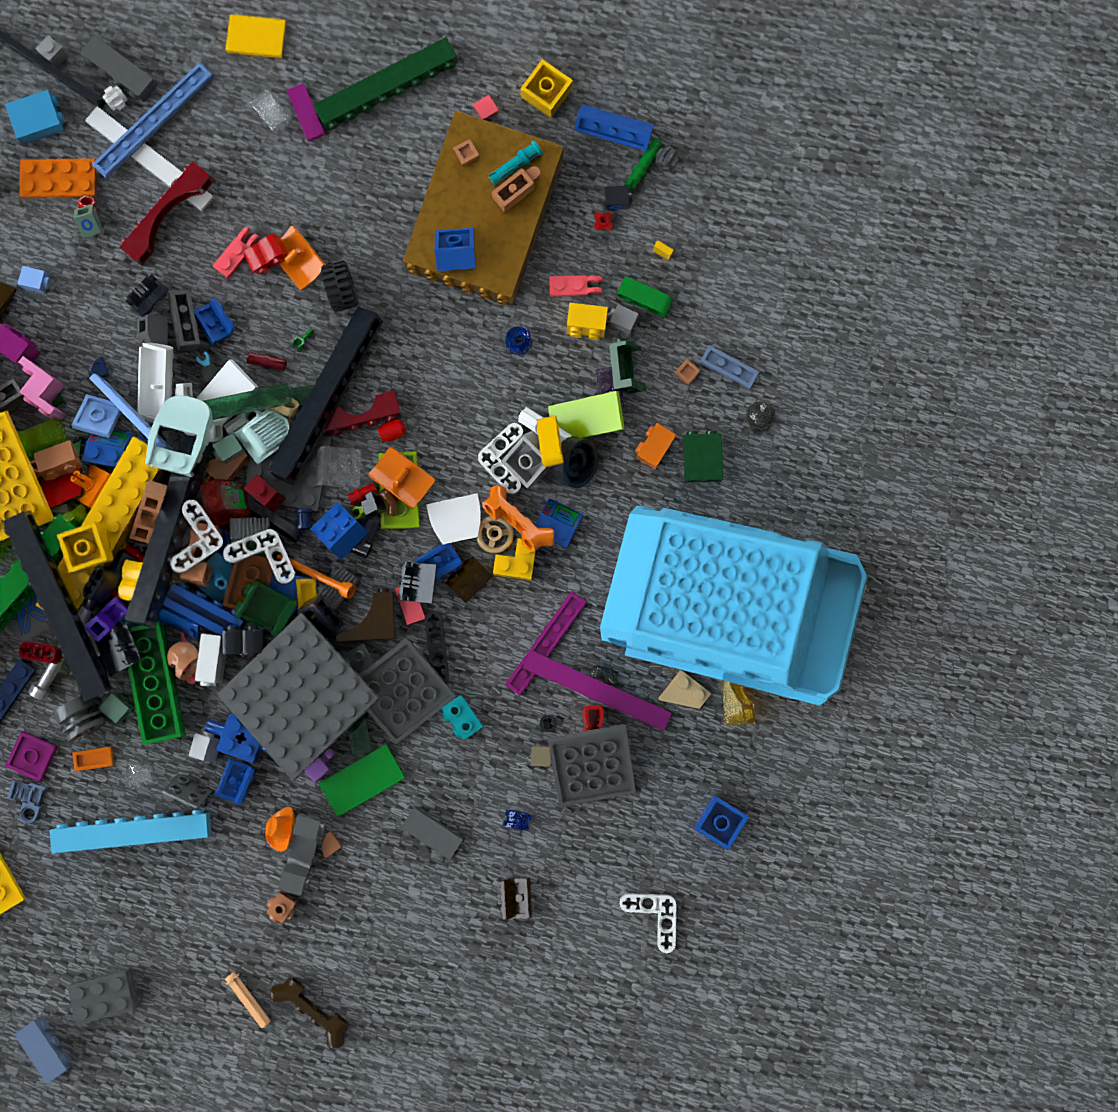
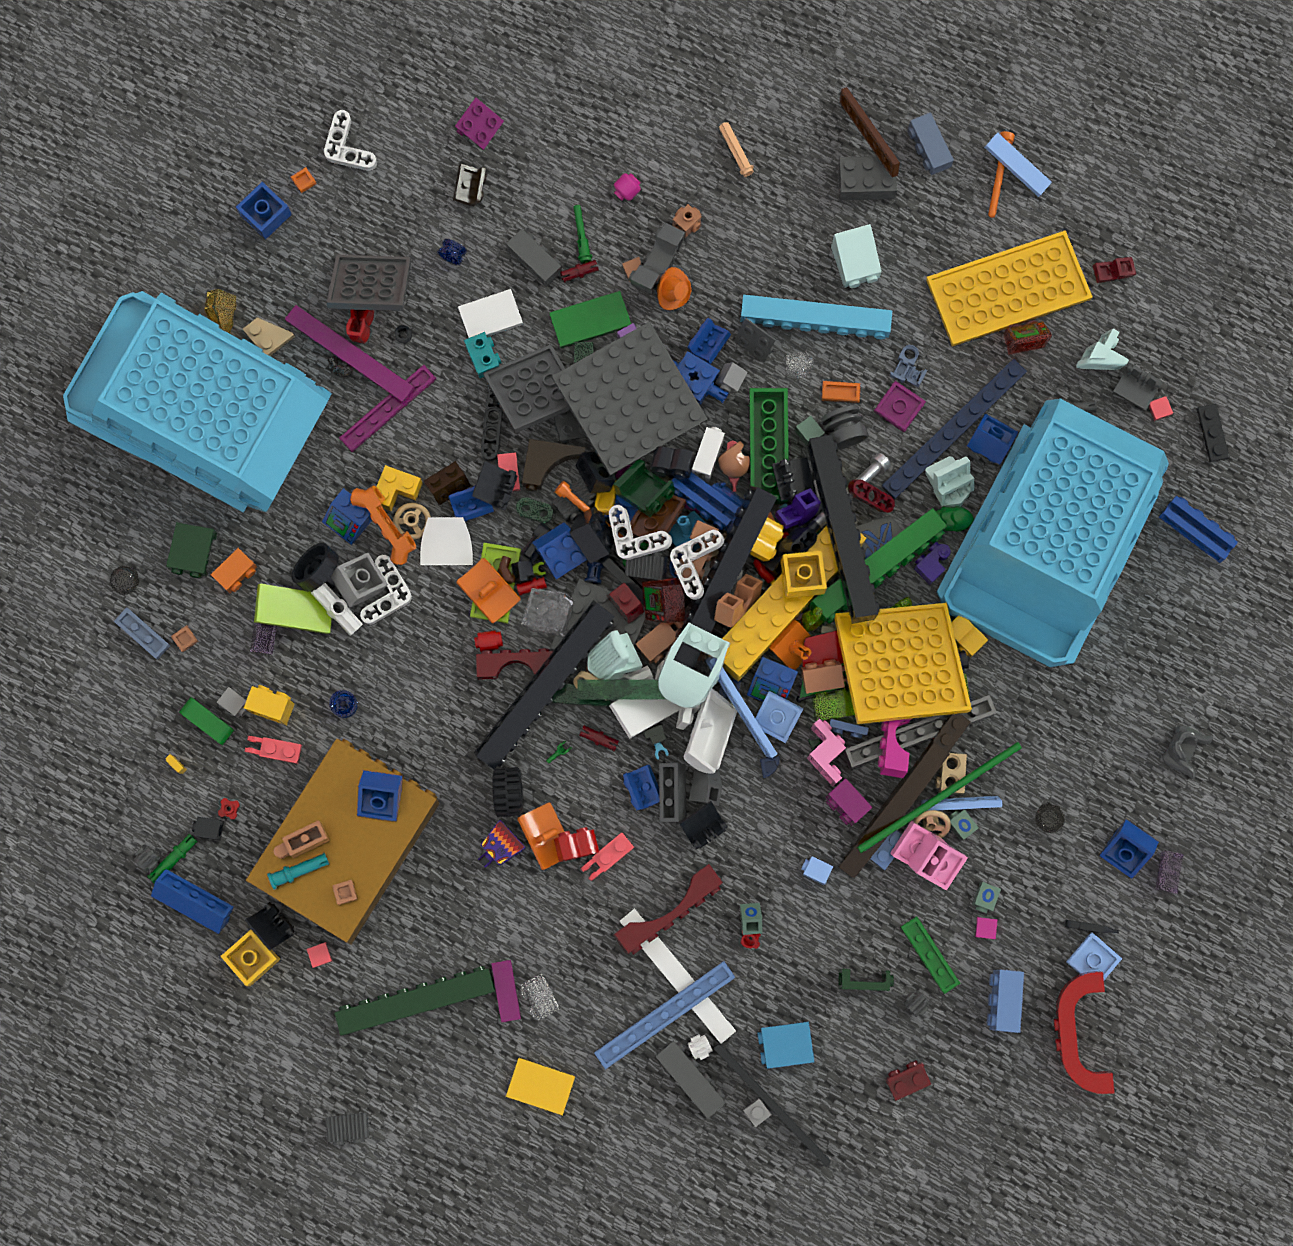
camera: 170 degrees left, 5 degrees down
(22, 420) = (855, 730): none -> medium blue plate
(58, 178) = (775, 975): orange plate -> none
(98, 903) = (856, 256): none -> light aqua slope
(105, 1044) = (869, 132): none -> reddish brown tile
(228, 449) = (650, 650): sand green brick -> none
(308, 551) = (592, 534): none -> black brick
(334, 1026) = (691, 147): dark brown plate -> none
(337, 239) = (500, 845): none -> torso
(352, 931) = (627, 187): none -> dark pink head
(376, 568) = (535, 509): none -> clear green plate
(383, 829) = (579, 271): none -> dark red pin
(386, 859) = (583, 246): none -> green pin
(464, 762) = (491, 314): none -> white tile
(521, 969) = (479, 123): none -> magenta hinge
(535, 118) = (269, 926): none -> black hinge
(540, 756) = (417, 306): dark tan tile -> none
(549, 441) = (332, 584): yellow beam -> none
(623, 367) = (246, 649): dark green panel -> none
(690, 867) = (303, 180): none -> orange tile

